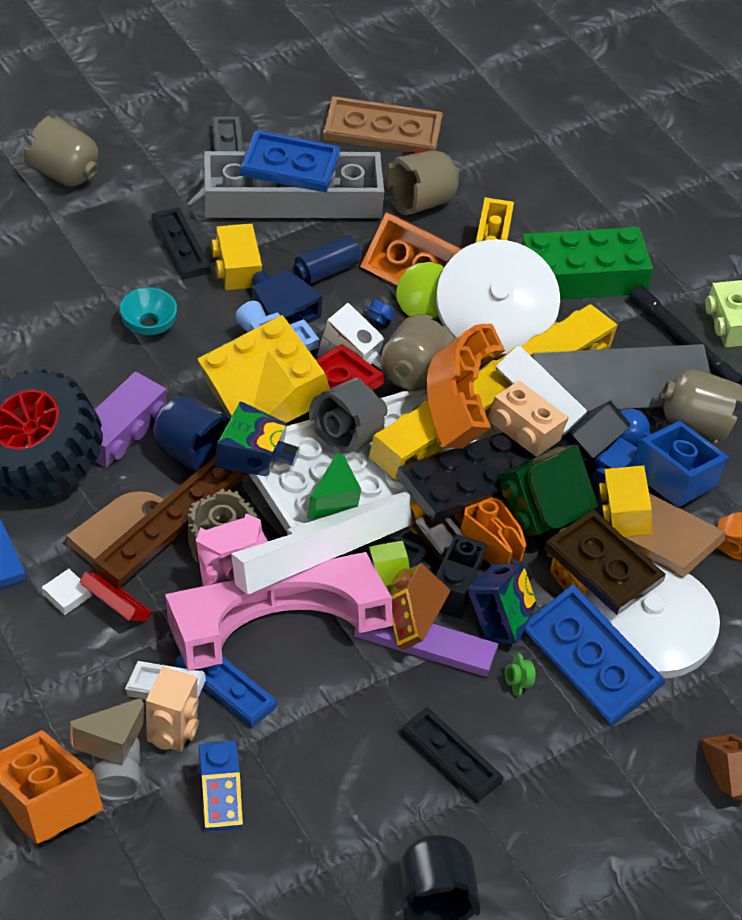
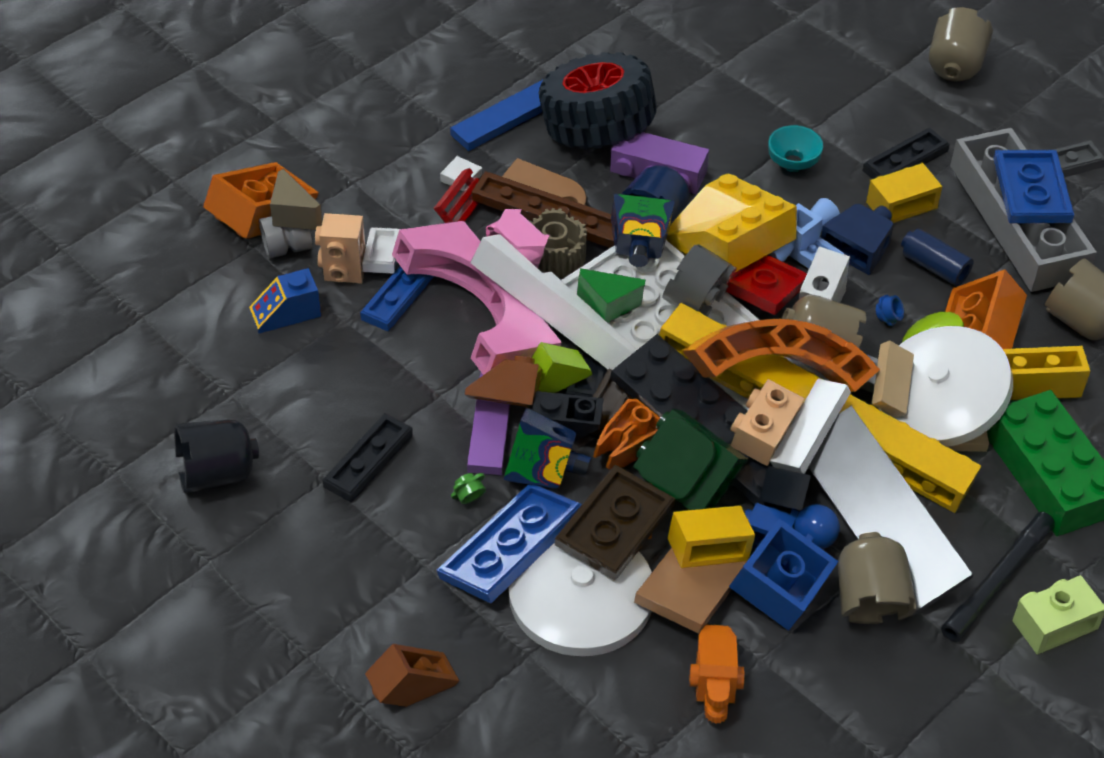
camera: 80 degrees right, 0 degrees up
(503, 328) = (893, 379): none -> tan tile

